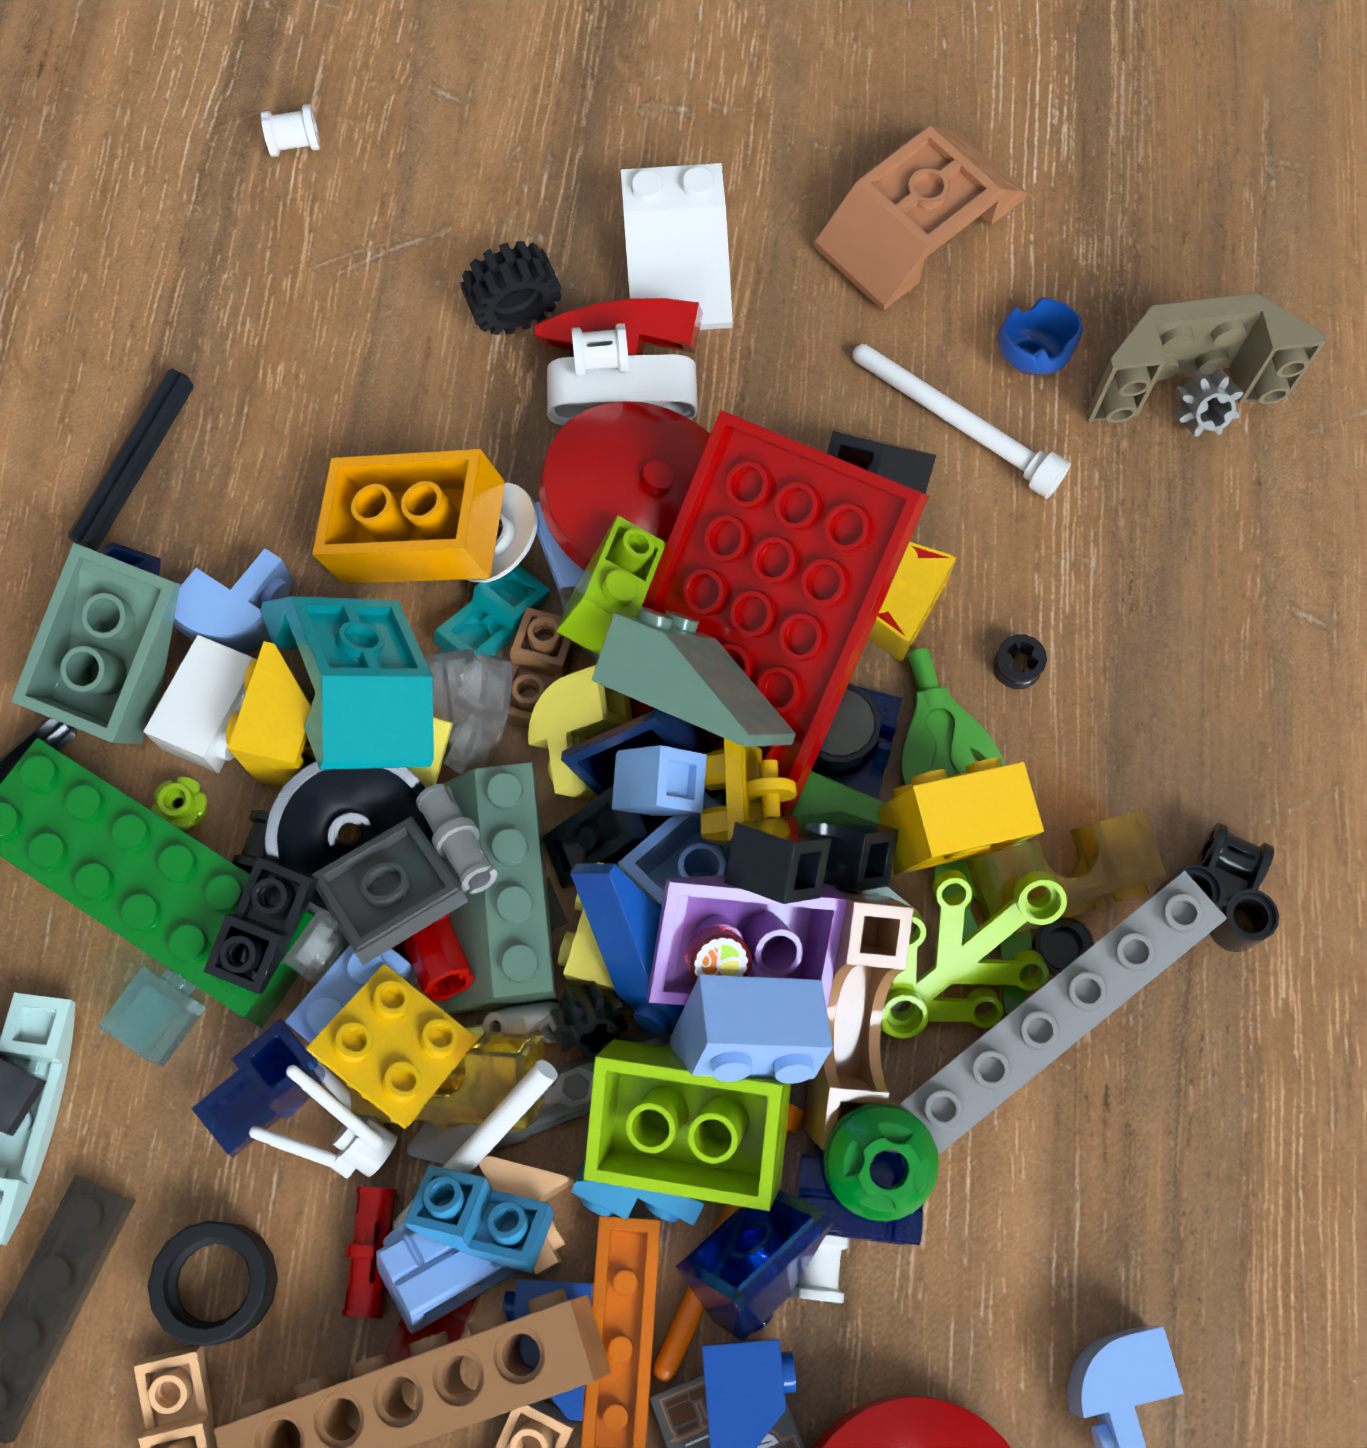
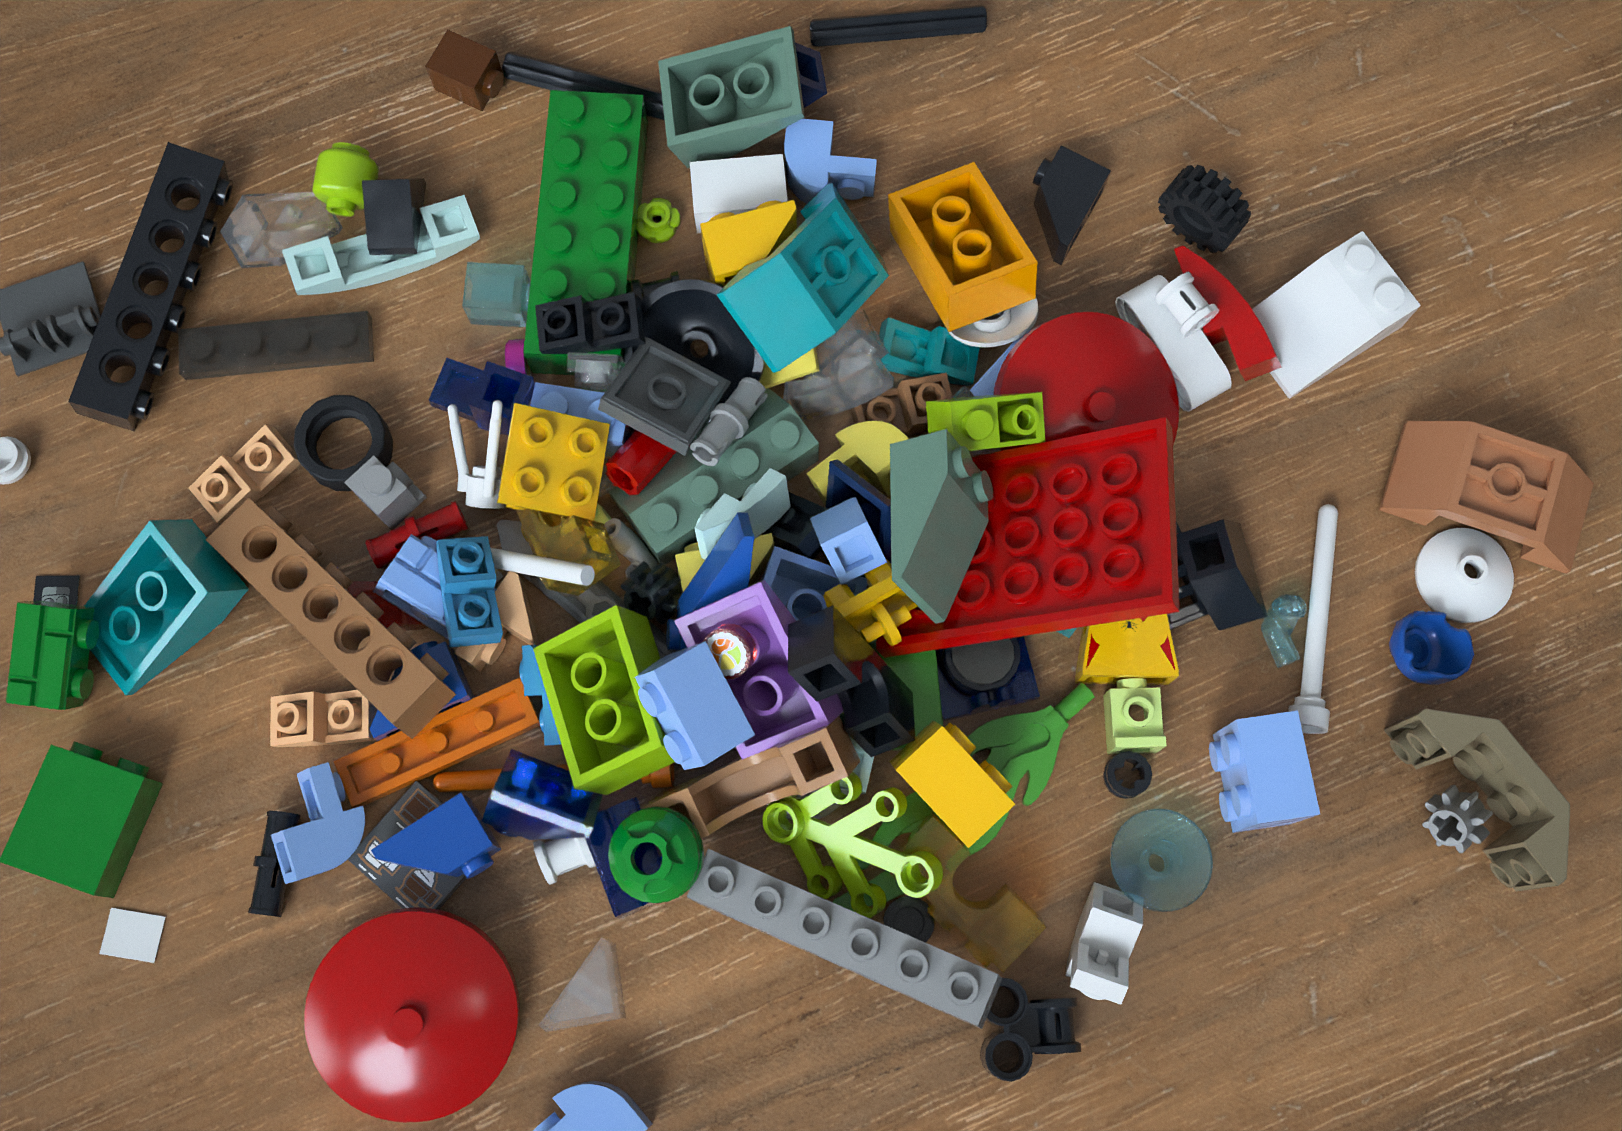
camera: 60 degrees right, 5 degrees up
(236, 1029) = (515, 358): none -> dark pink tile
(300, 1261) = (386, 491): none -> light grey brick
(419, 403) = (1066, 198): none -> black slope
(560, 852) = (762, 501): none -> light aqua slope
(941, 440) = (1279, 625): none -> clear light blue arm
(967, 640) = (1122, 731): none -> yellowish green brick
(979, 294) = (1448, 588): none -> white dish
(987, 1319) = (592, 993): none -> clear slope
(1090, 534) = (1264, 772): none -> light blue brick
(1129, 654) = (1180, 845): none -> clear light blue dish
(1175, 769) = (1104, 944): none -> white brick

